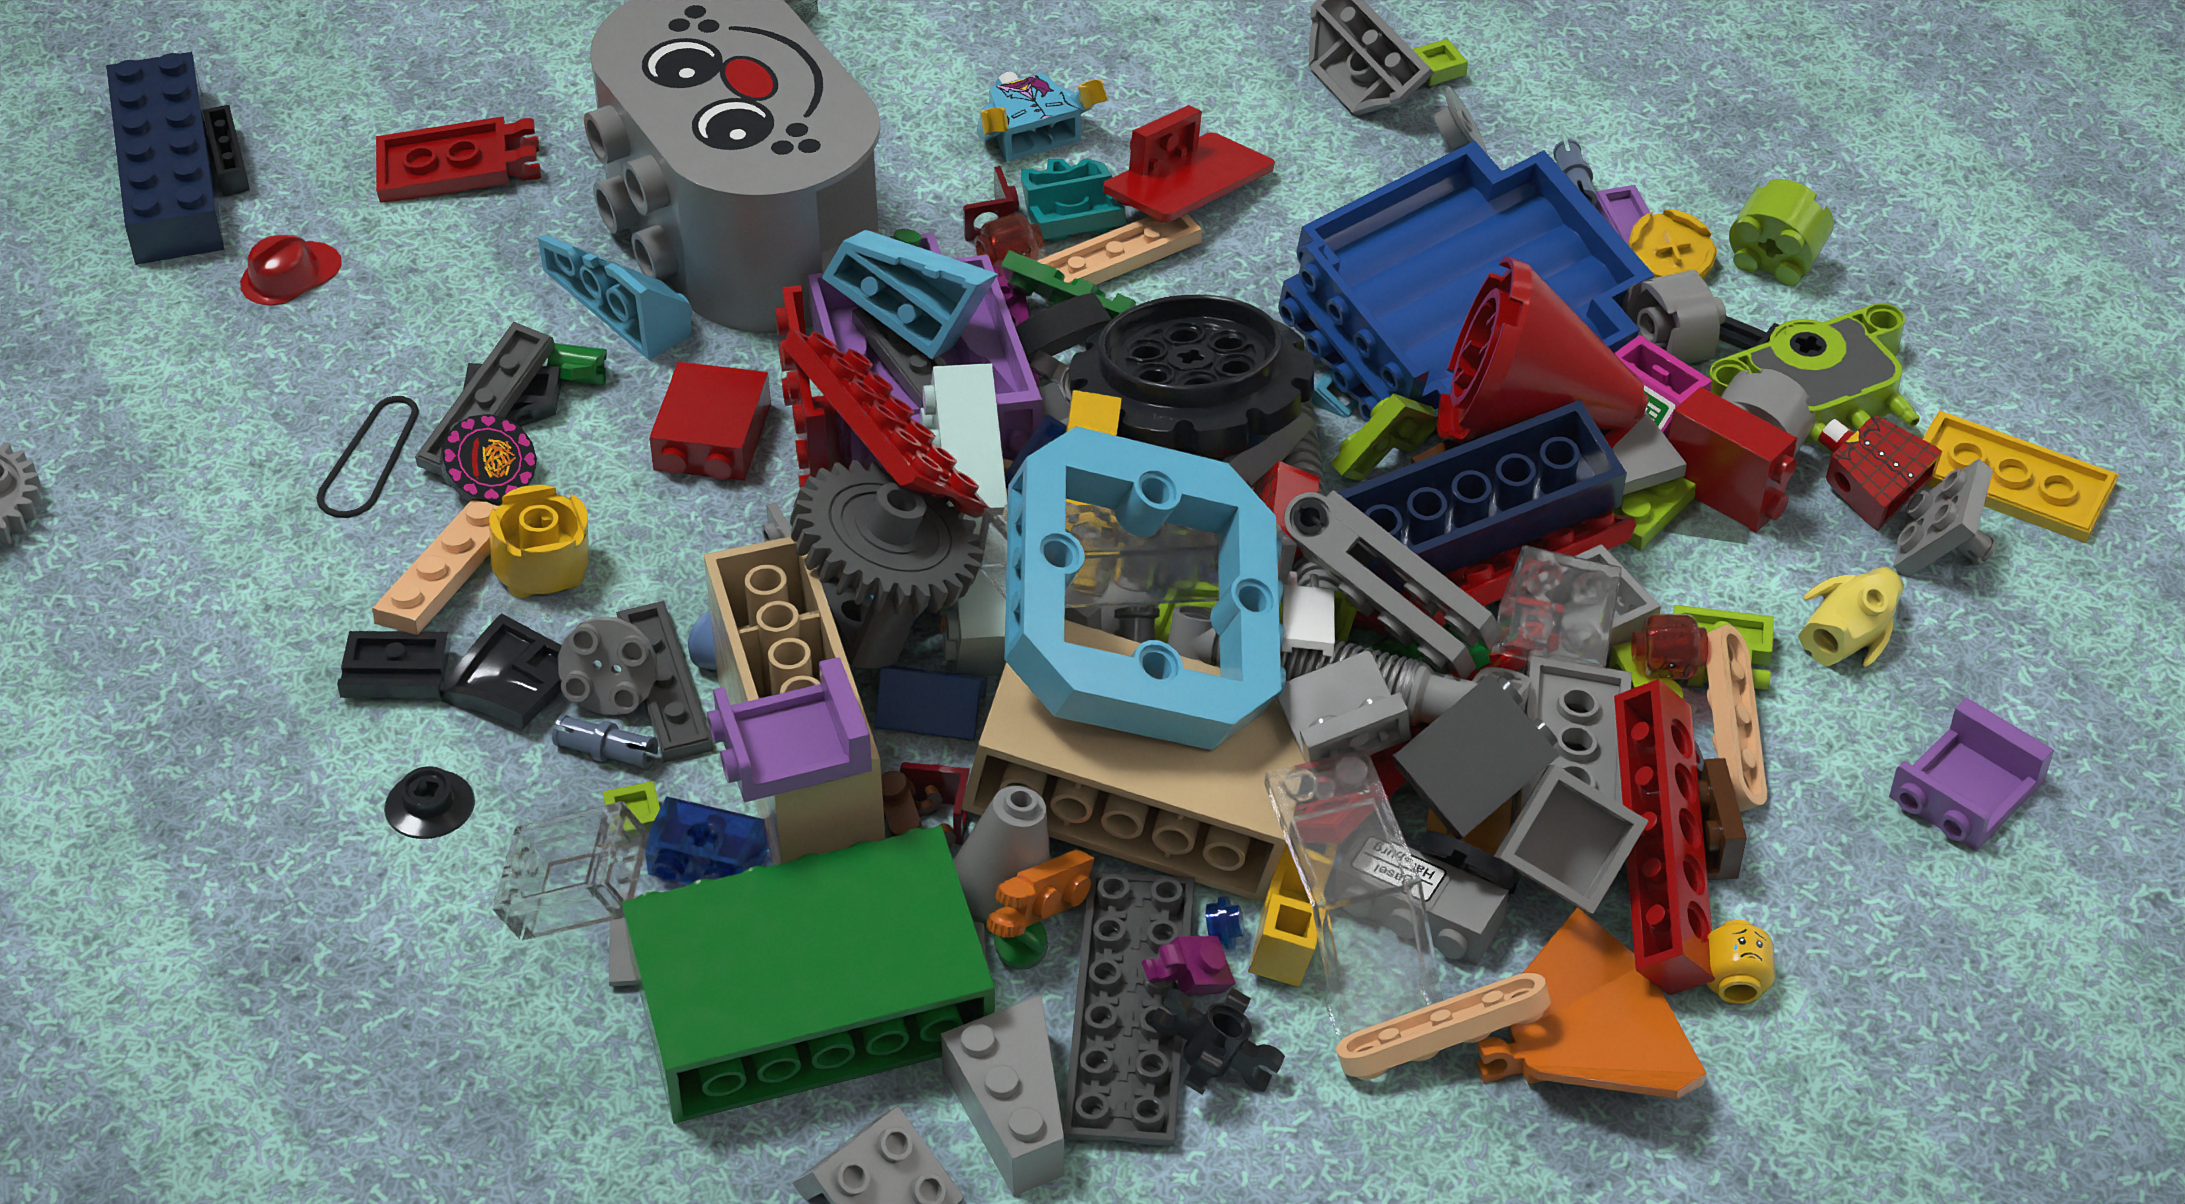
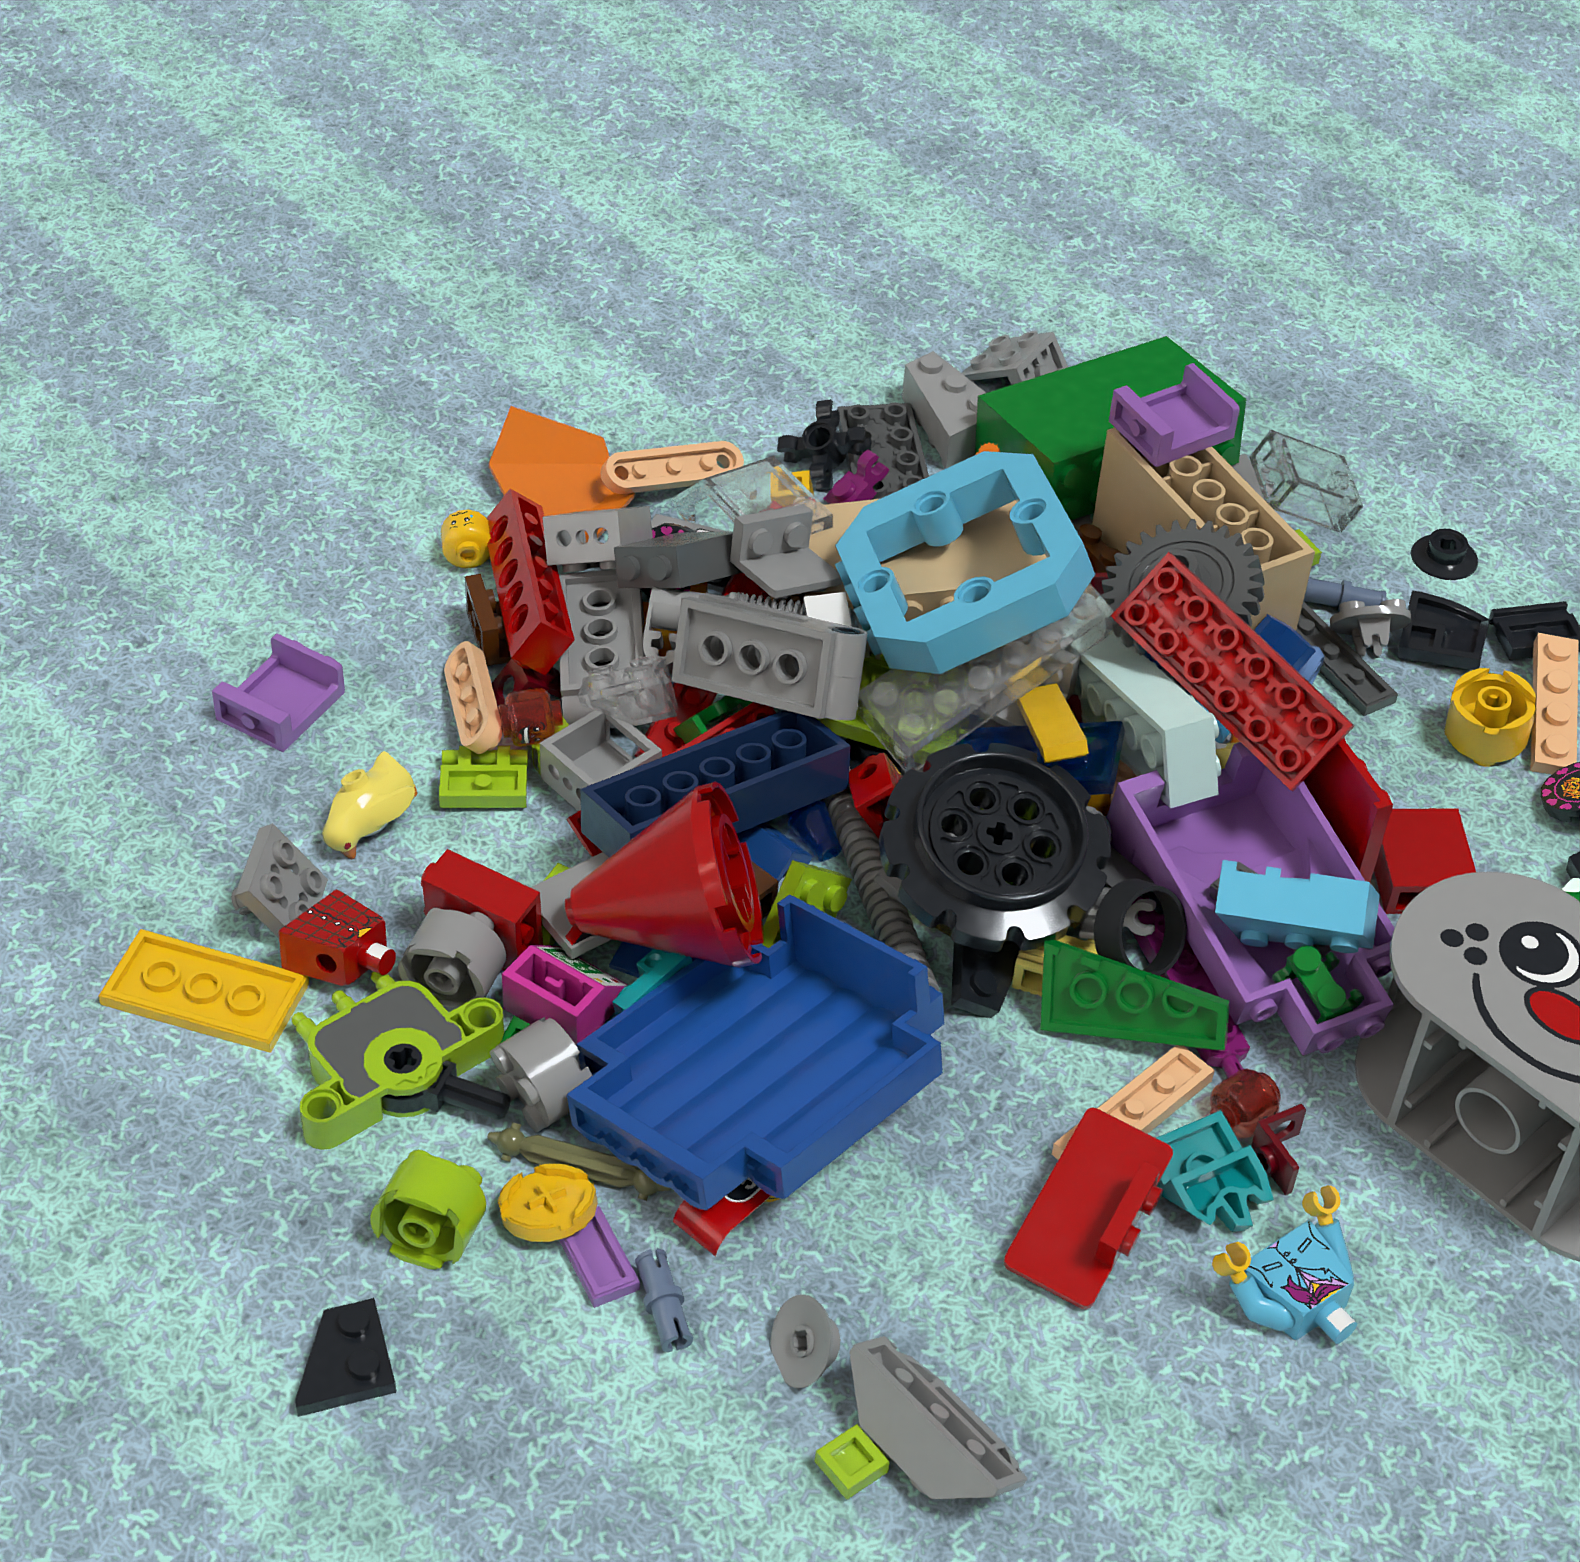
camera: 165 degrees right, 0 degrees up
(1845, 177) = (346, 1360): none -> black wing

